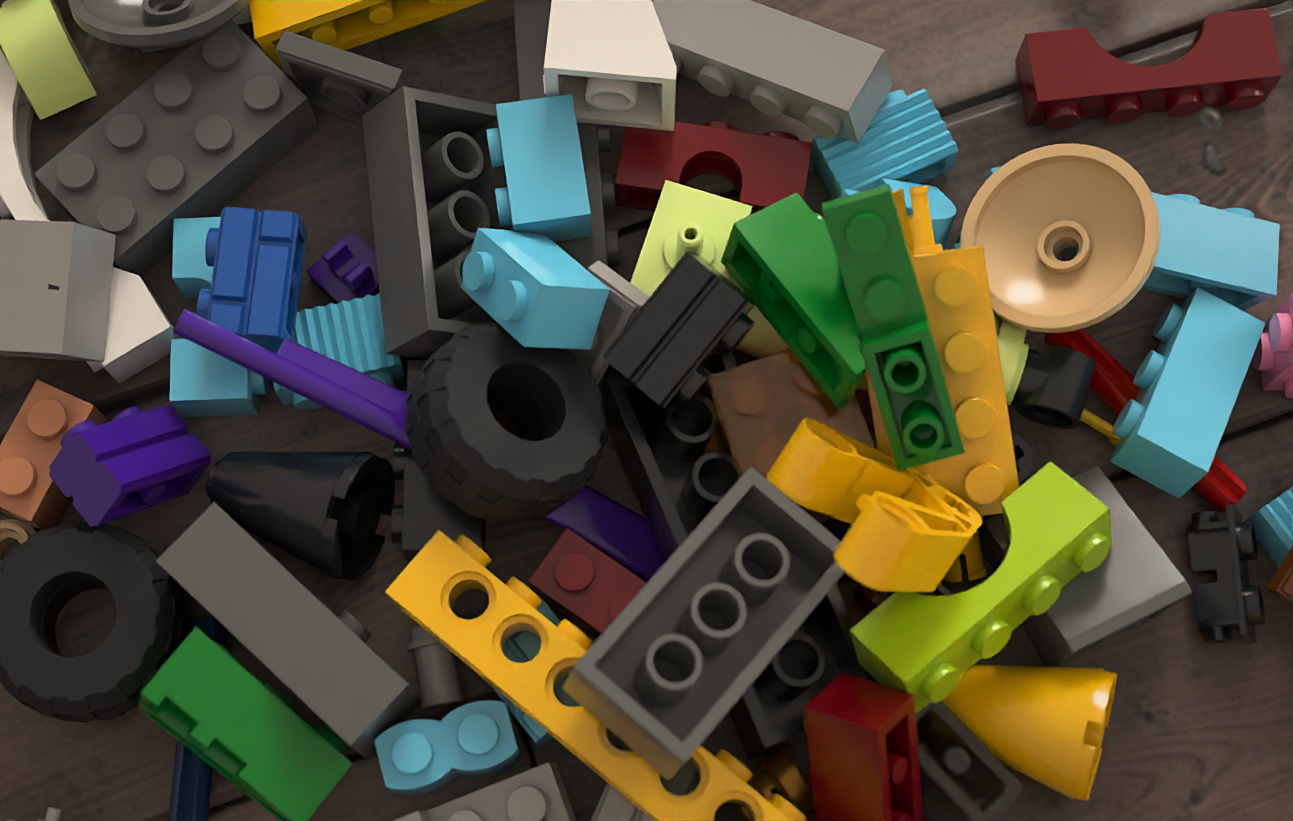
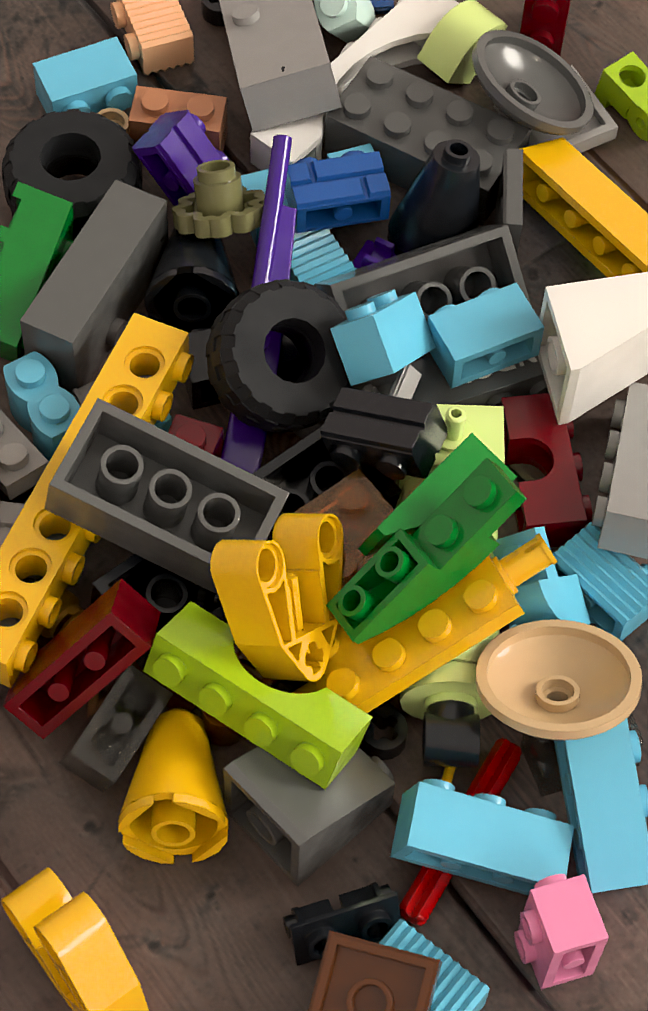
camera: 70 degrees right, 15 degrees down
(236, 437) = (218, 203): none -> olive plant
(313, 165) = (440, 199): none -> black cone

